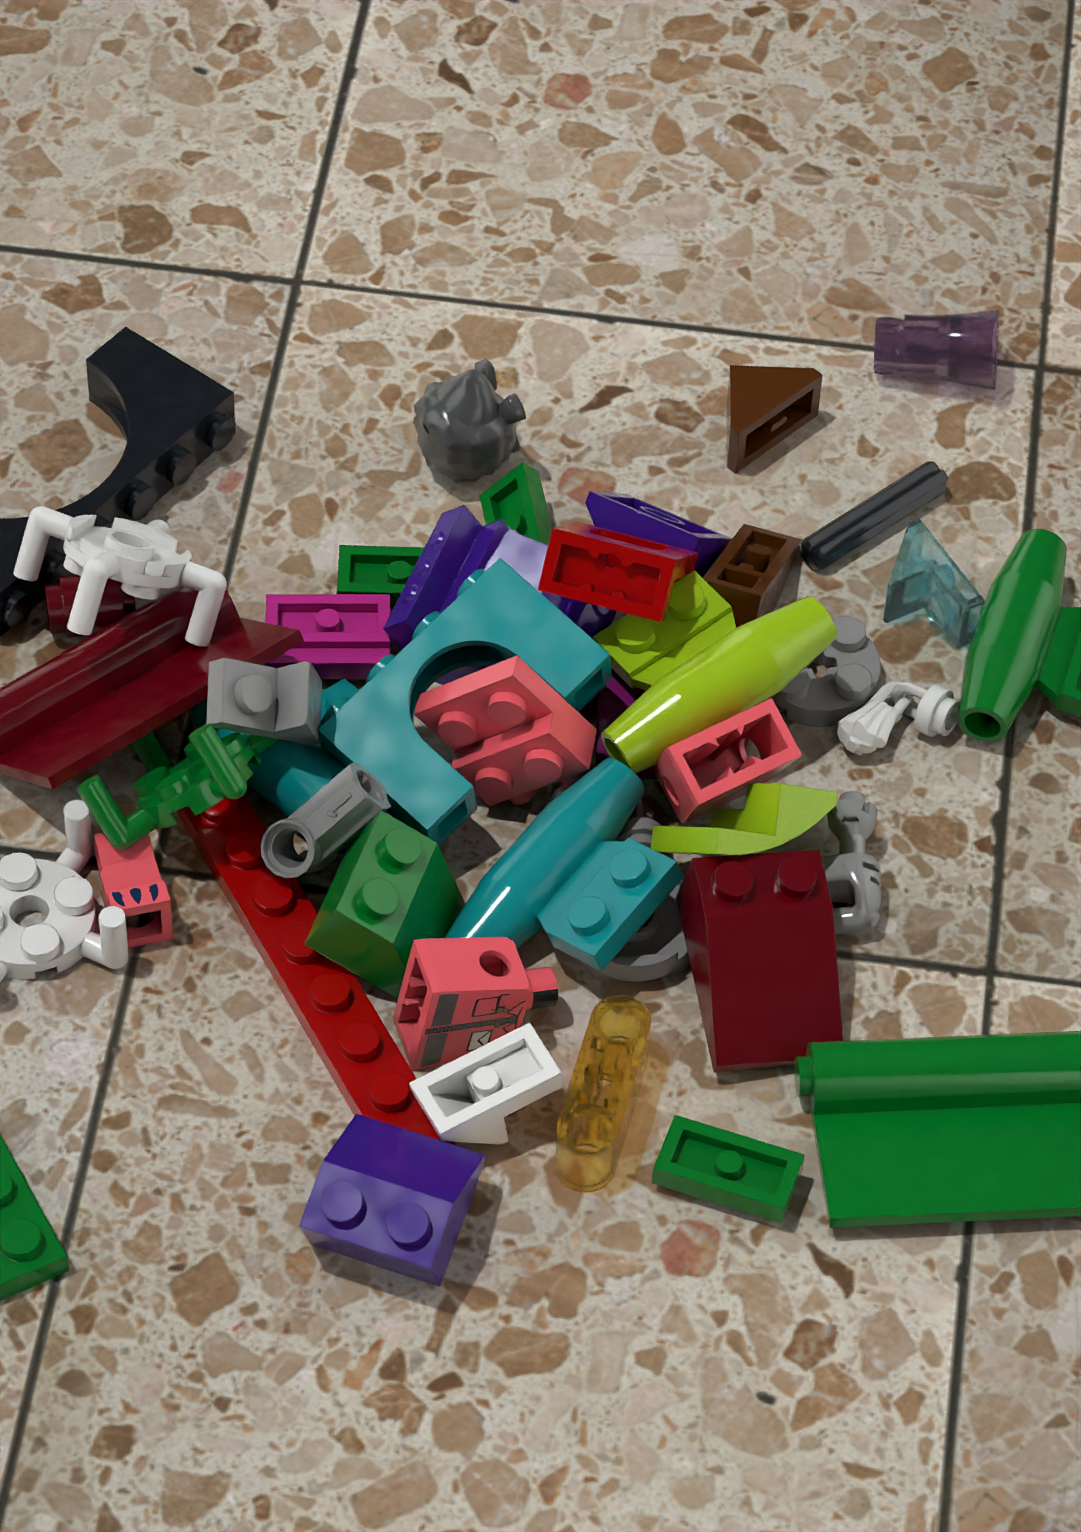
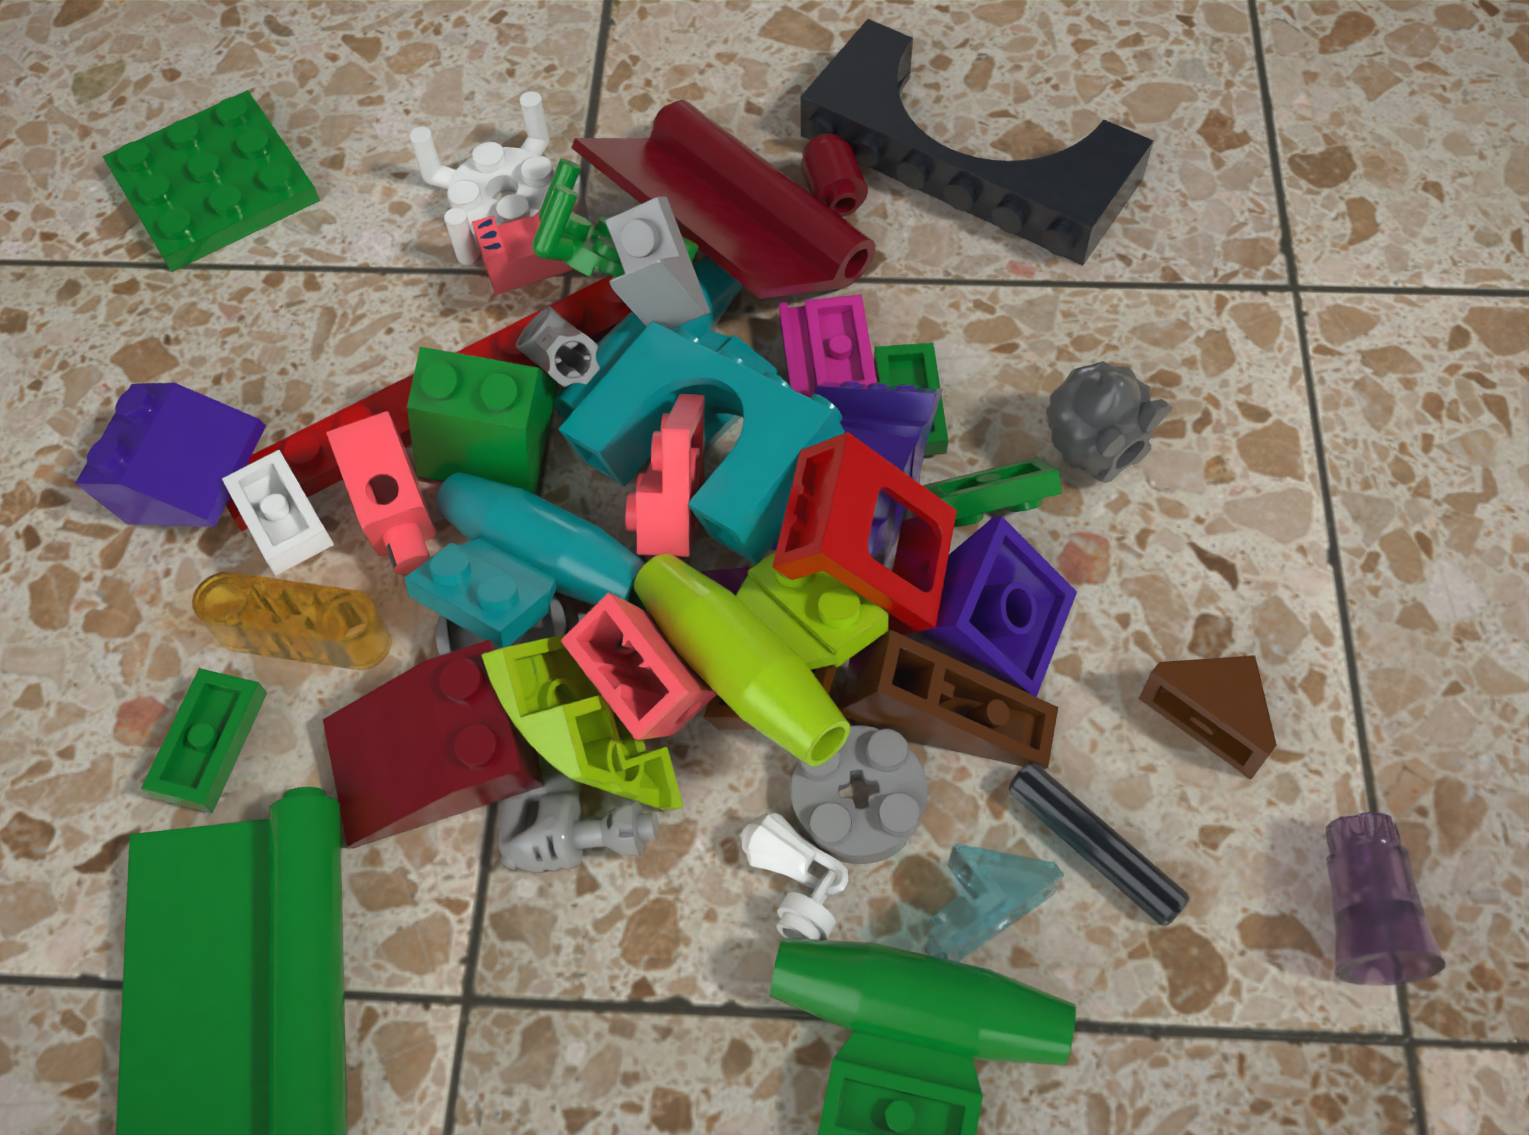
camera: 90 degrees right, 10 degrees up
(129, 553) = (818, 172): white plate -> none

